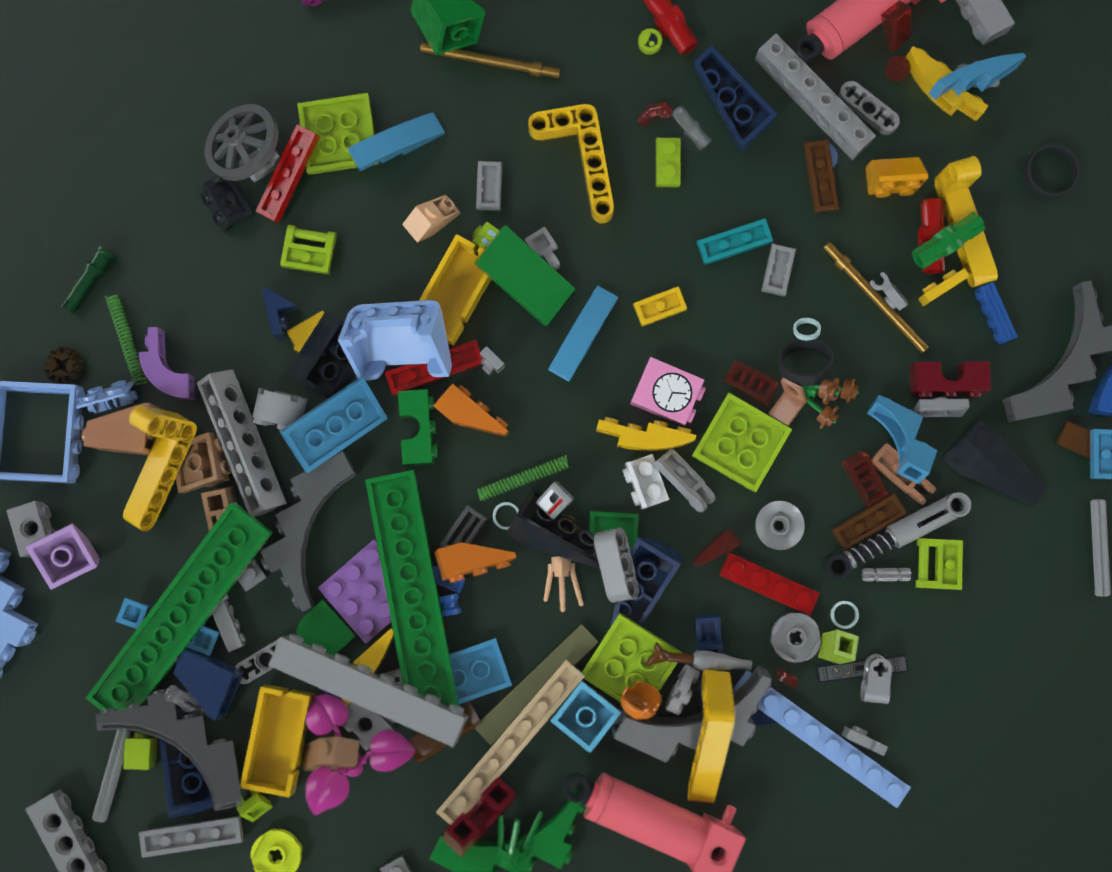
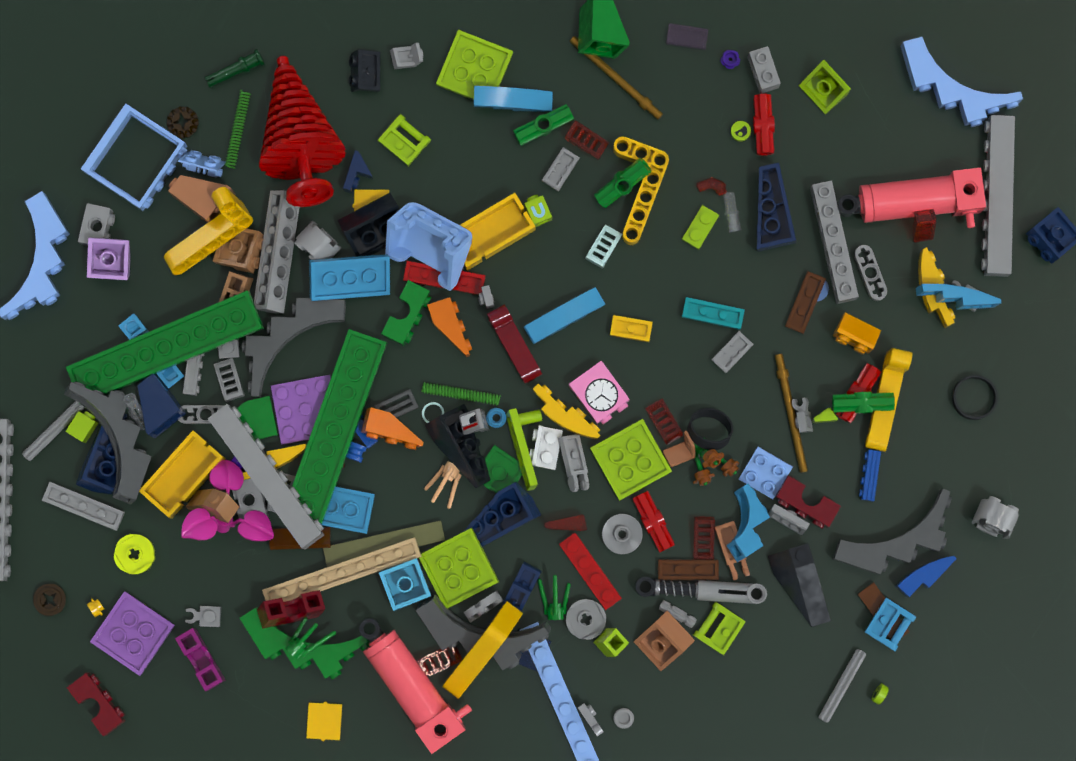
camera: 30 degrees right, 0 degrees up
(158, 372) = (247, 167): medium lavender arch -> none
(195, 313) = (298, 139): none -> red plant
(238, 139) = (401, 33): dark grey wheel -> none
(254, 806) = (139, 511): lime tile -> none
(270, 620) = (233, 395): none -> light grey slope
(287, 173) = (421, 77): red plate -> none
(430, 217) = (505, 168): light nougat slope -> none
(451, 137) = (554, 118): none -> green piece
(487, 148) = (583, 129): none -> clear red slope
(524, 275) = (546, 250): green tile -> none
(544, 246) = (573, 235): light grey plate -> none
(548, 393) = (514, 344): none -> dark red beam
(566, 146) = (631, 175): none -> green piece
(567, 481) = (491, 413): none -> dark azure plate
(580, 257) = (595, 260): none -> light aqua slope
(599, 476) = (515, 424): none -> lime piece
(616, 565) = (488, 492): light grey beam -> none
(641, 700) = (449, 596): orange hair -> none
(650, 785) = (423, 665): none -> clear red slope
(699, 659) = (508, 592): light grey piece -> none
(758, 646) = (554, 611): none -> green plant
(787, 678) = (562, 644): clear red tile -> none
(804, 493) = (653, 521): none -> red piece
(807, 337) = (726, 414): light aqua piece -> none
(855, 610) = (638, 618): light aqua piece -> none
(855, 669) = (620, 670): sticker -> none
(876, 684) = (622, 685): light grey piece -> none
(888, 373) = (765, 472): none -> light blue hinge
(891, 611) = (664, 641): none -> nougat slope
(896, 718) = (623, 718): none -> light grey tile
(897, 68) = (909, 256): clear red tile -> none
(913, 278) = (825, 416): none -> lime slope
(950, 280) = (852, 432): yellow plate -> none

